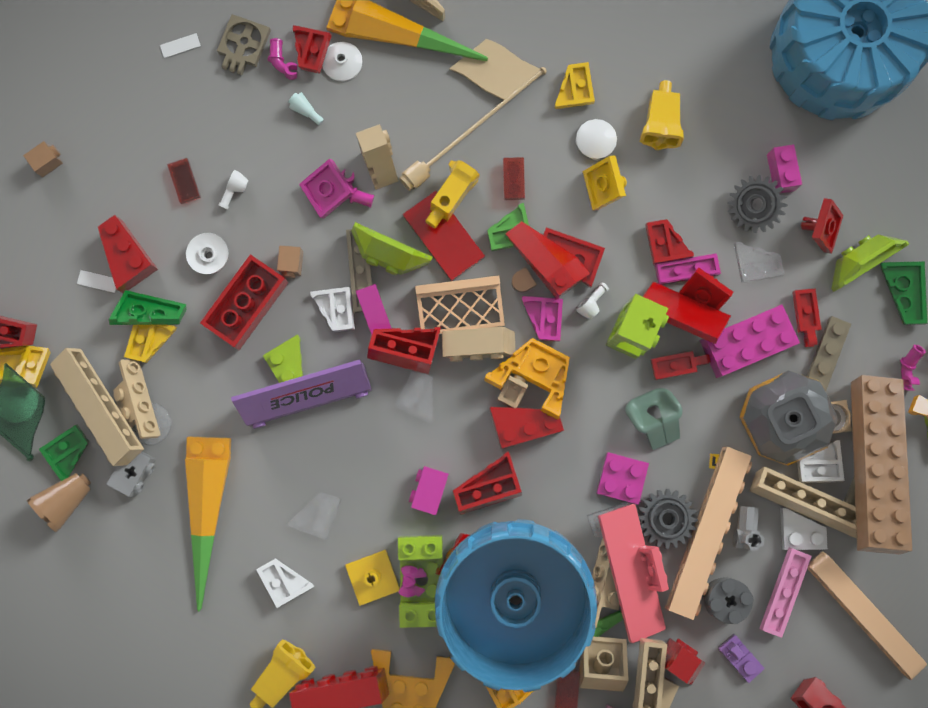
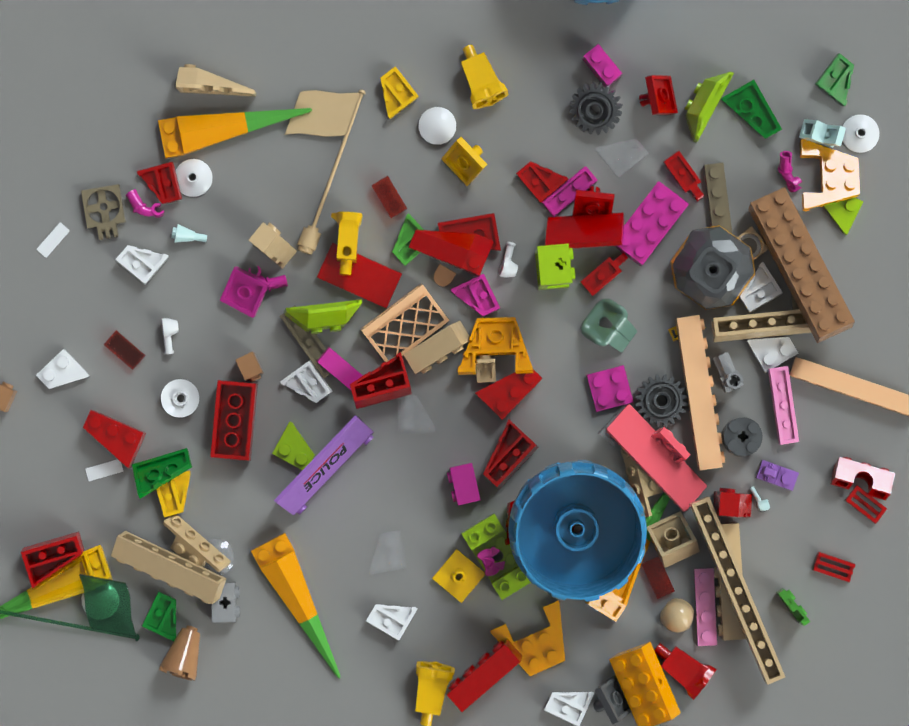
camera: 25 degrees left, 5 degrees up
(114, 166) = (61, 371): none -> white wing
(247, 109) = (140, 262): none -> white wing
(709, 679) = (762, 505): none -> light aqua hand

